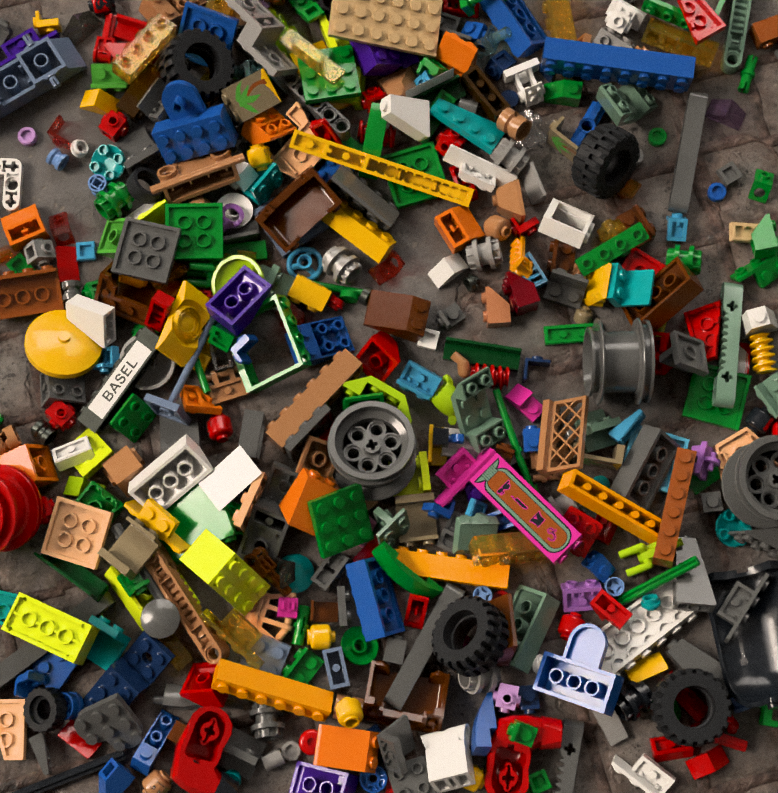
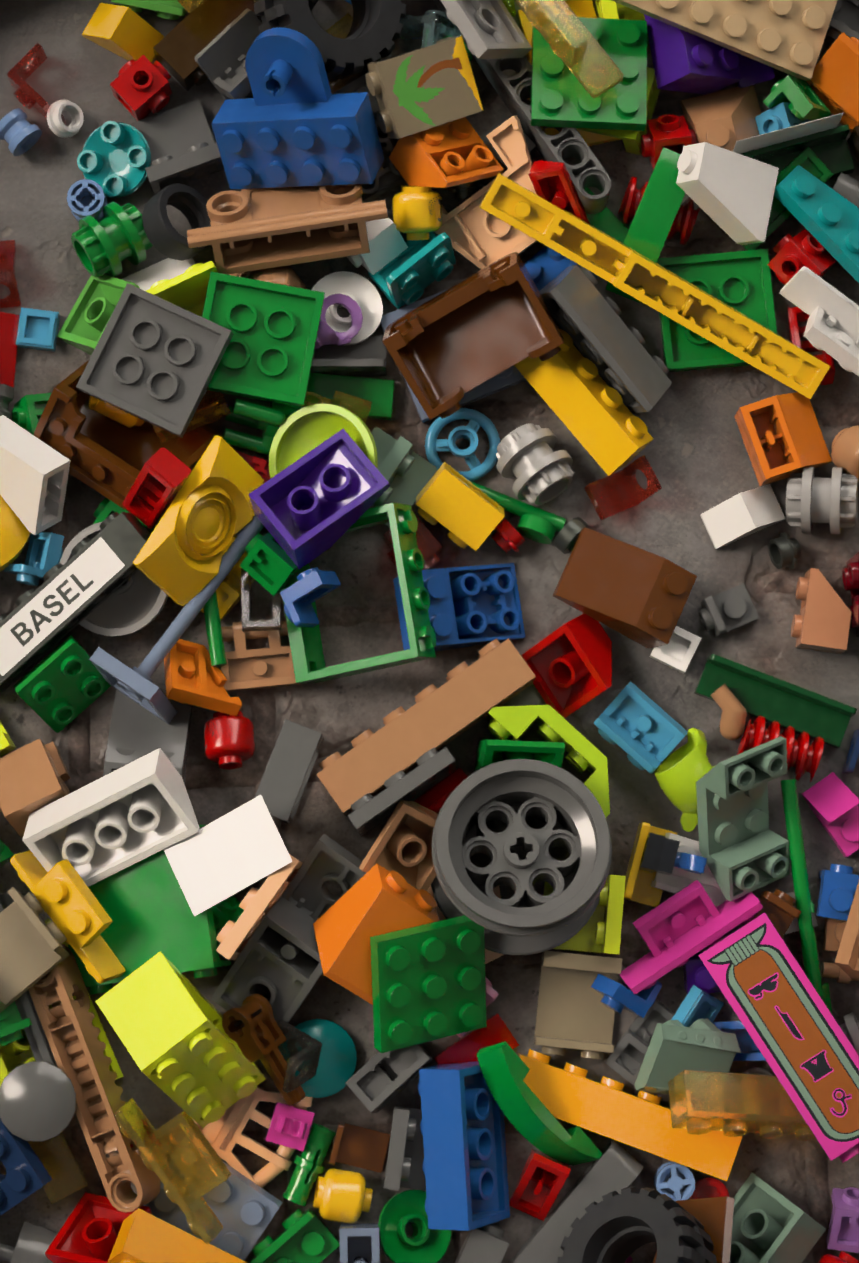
camera: 10 degrees right, 5 degrees up
(391, 527) = (524, 1013): sand green bracket -> none

